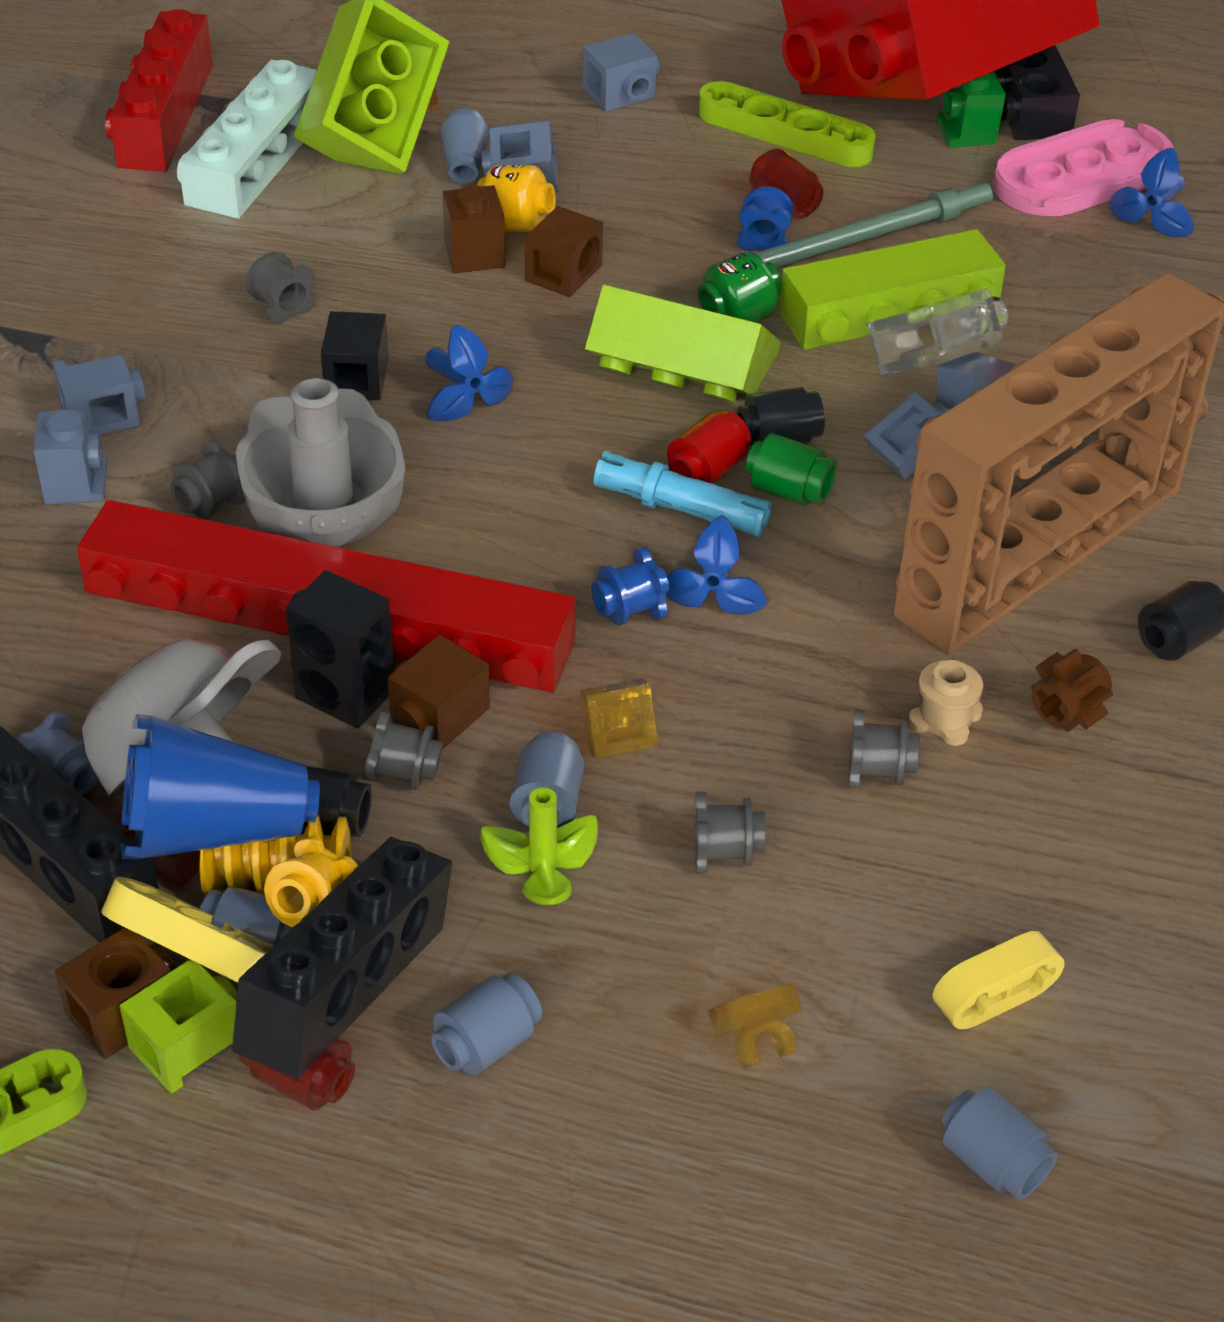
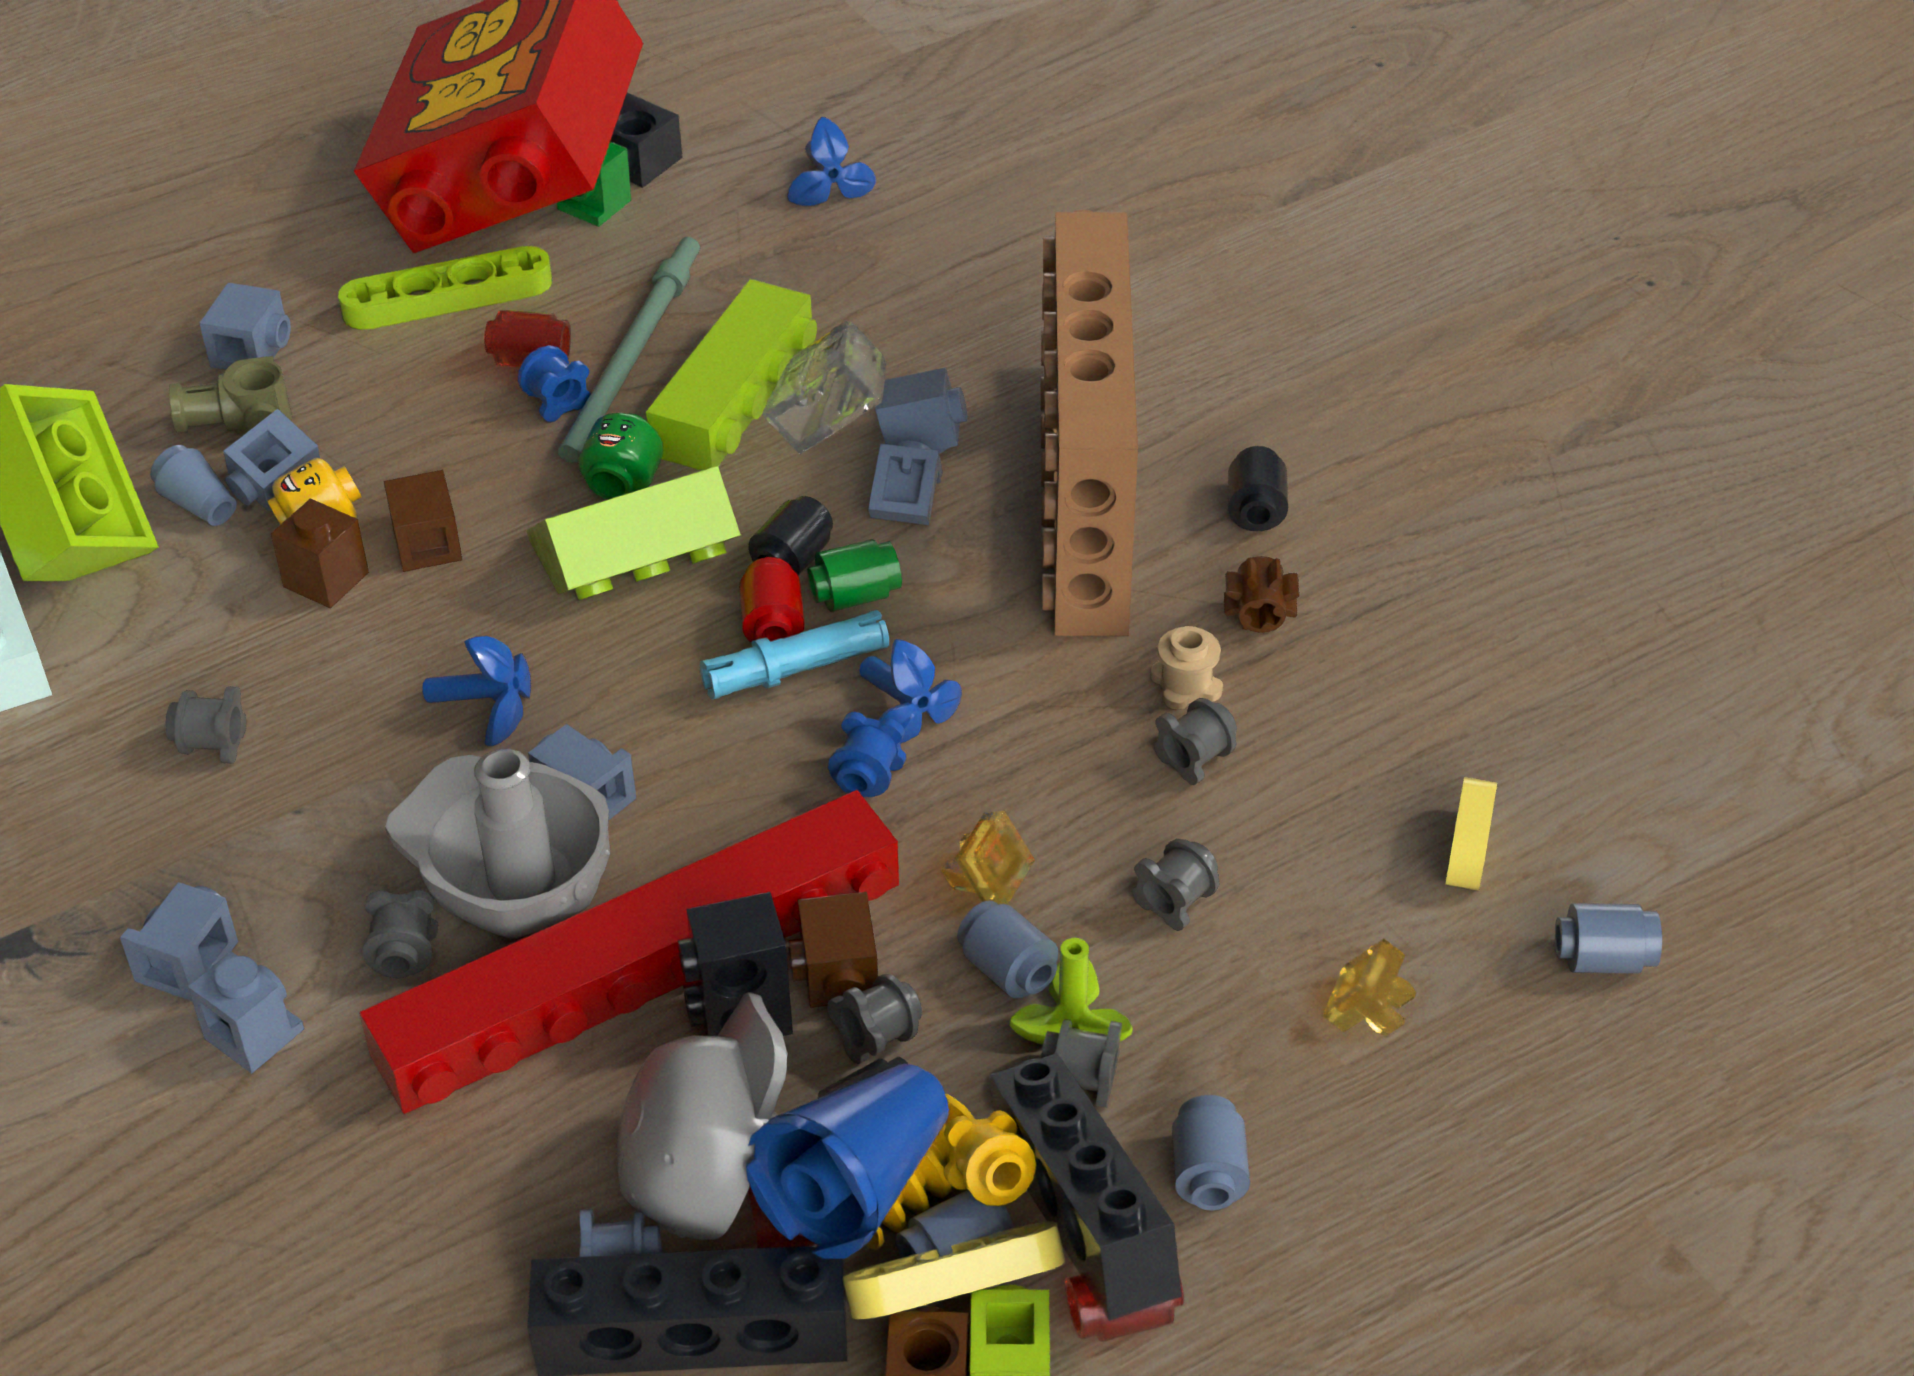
camera: 45 degrees left, 0 degrees up
(356, 352) = (380, 733): black brick -> none
(438, 470) = (590, 763): none -> sand blue brick
(493, 892) = (1088, 1056): none -> dark grey brick
(567, 105) = (239, 399): none -> olive connector
(1076, 167) = (730, 179): bright pink tile -> none

